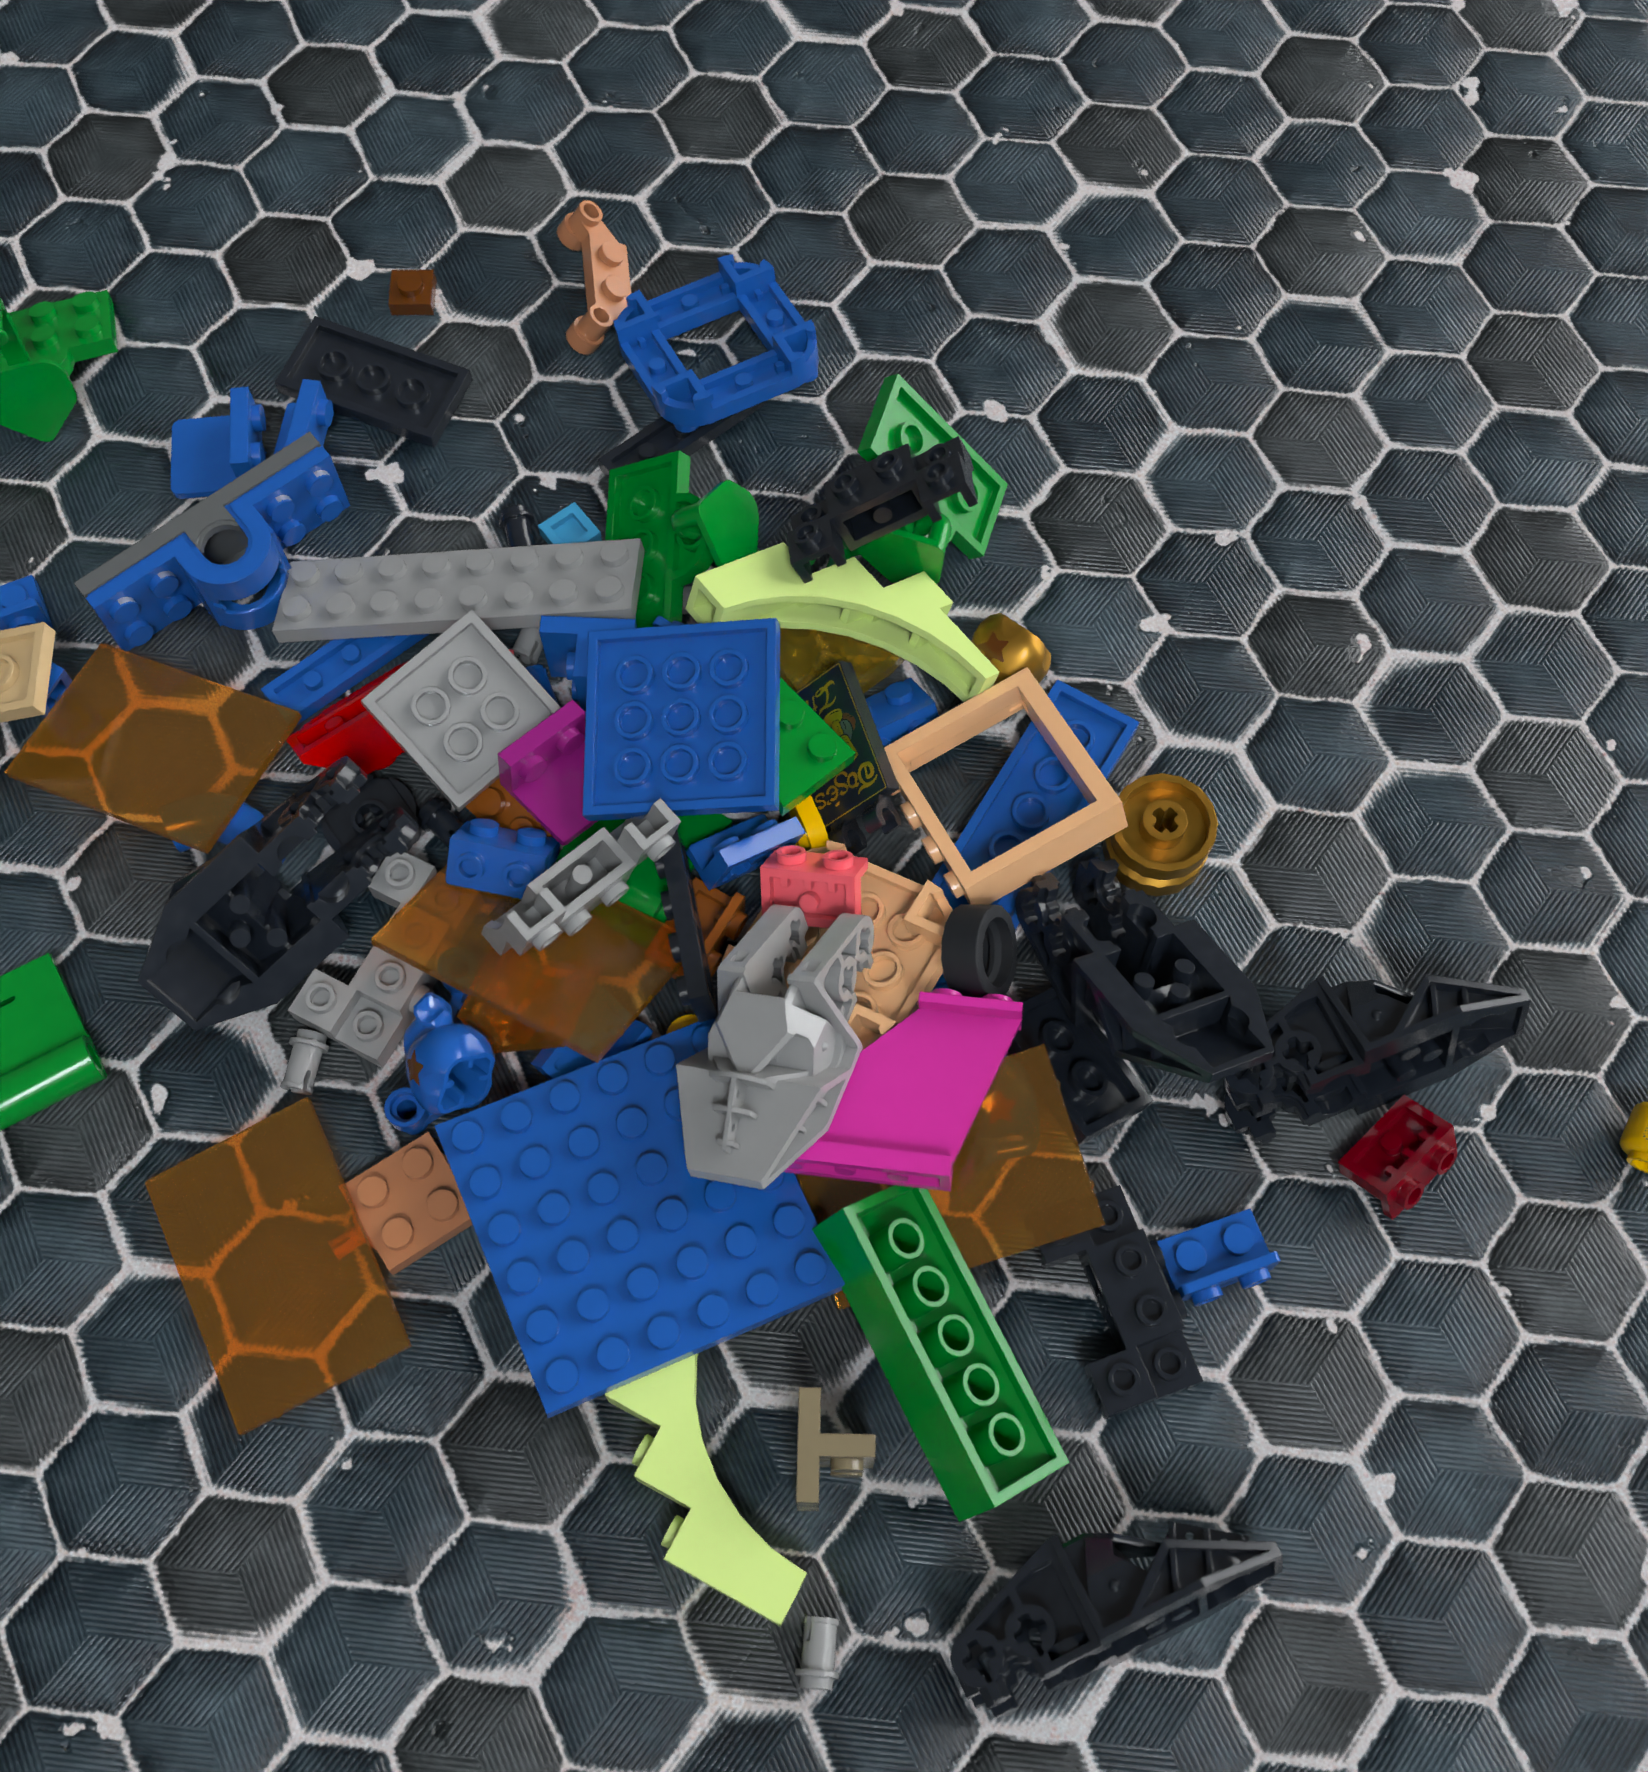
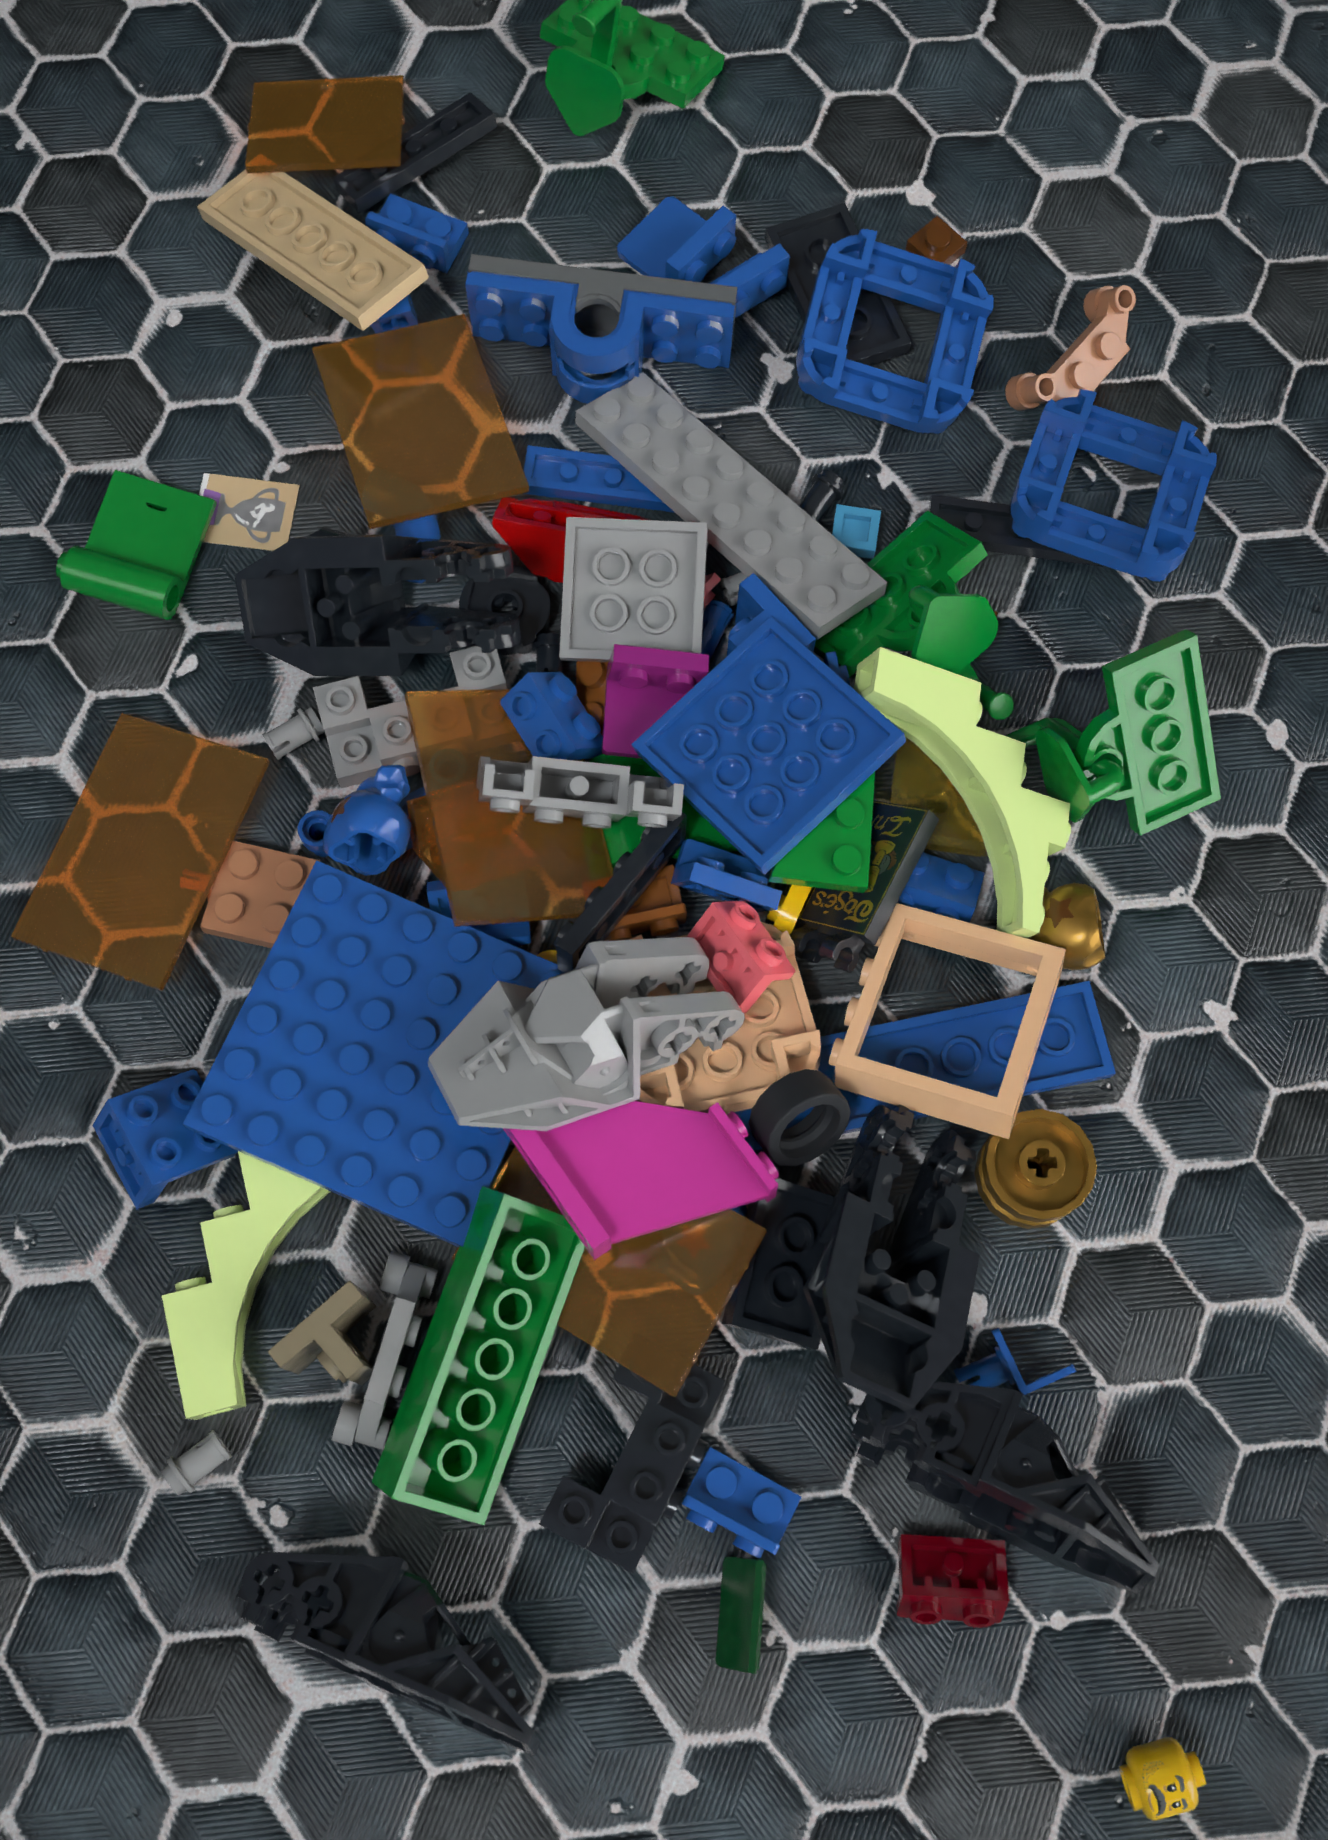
camera: 45 degrees right, 5 degrees up
(84, 938) = (249, 511): none -> sticker
(422, 433) = (910, 278): none -> blue plate
(525, 1459) = (148, 1137): none -> blue bracket
(864, 1392) = (366, 1421): none -> light grey plate
(879, 500) = (1078, 718): black bracket -> none
(1281, 982) = (1001, 1368): none -> blue bracket
(1299, 1328) = (741, 1614): none -> dark green slope

